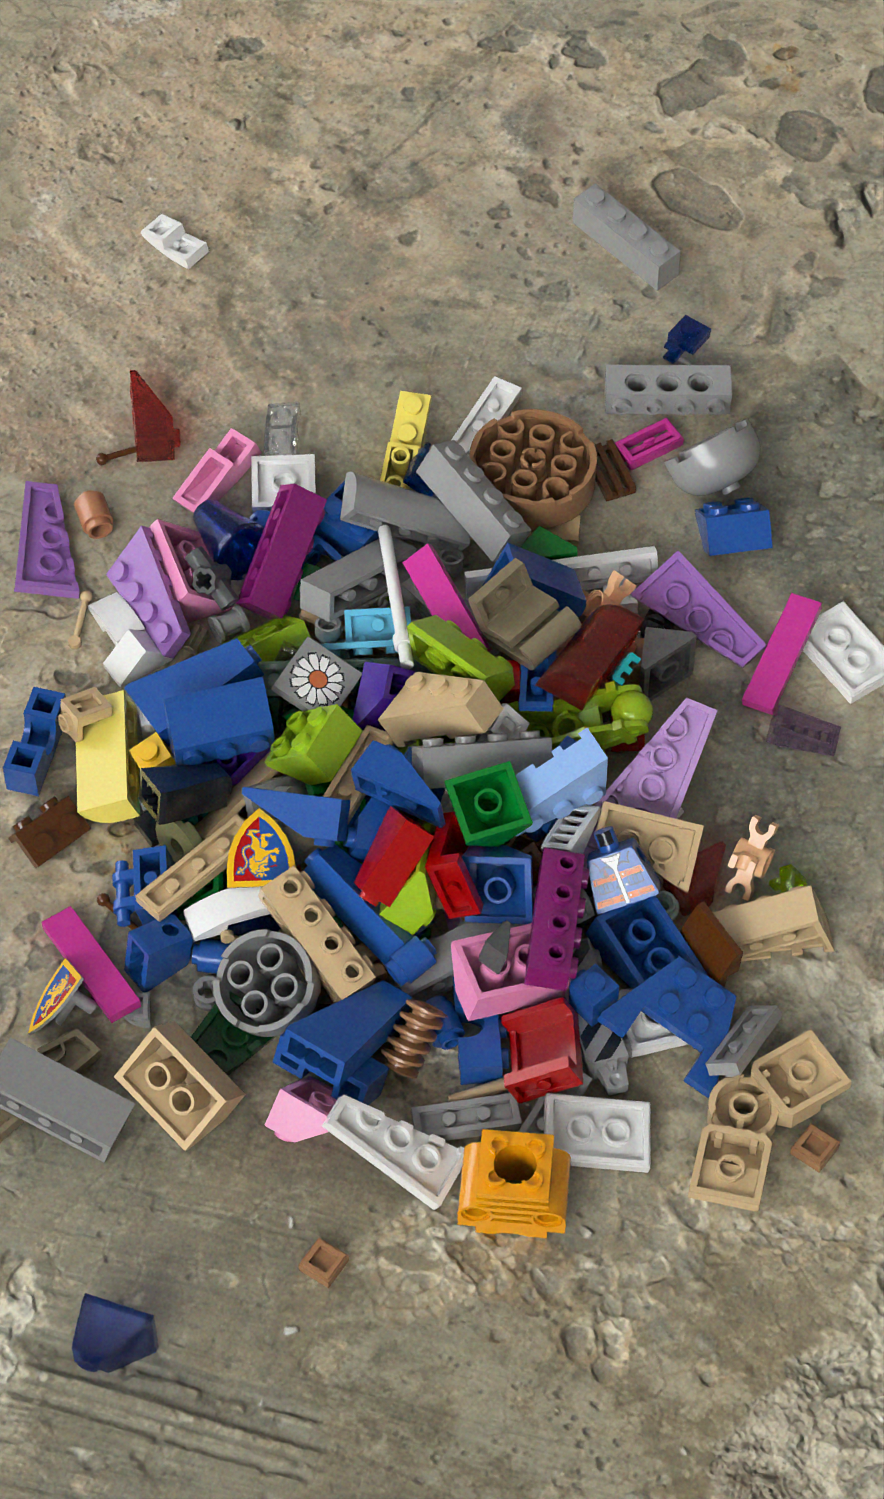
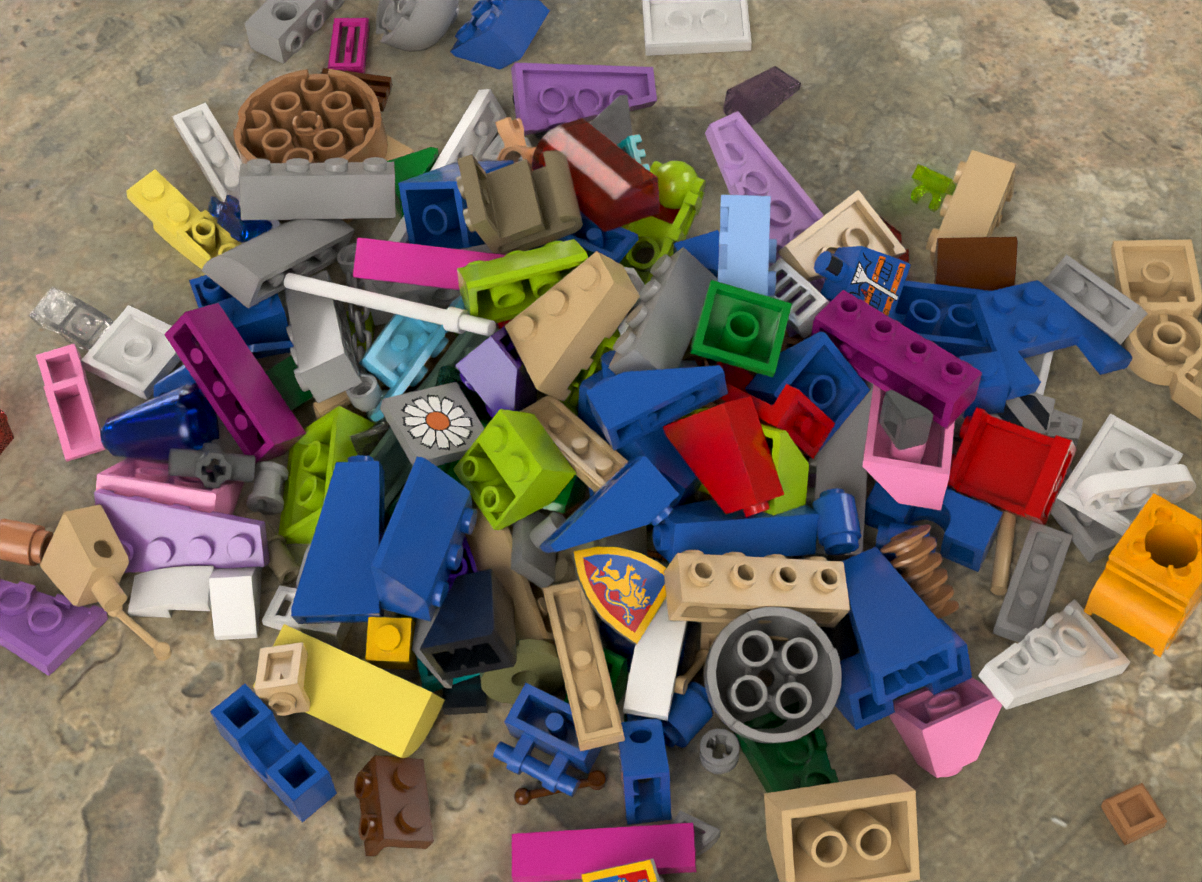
camera: 55 degrees left, 0 degrees up
(99, 556) = (87, 559): none -> tan torso
(575, 1137) = (1134, 487): none -> white beam
(751, 857) = (890, 187): light nougat pin -> none
(782, 653) = (670, 64): dark pink tile -> none

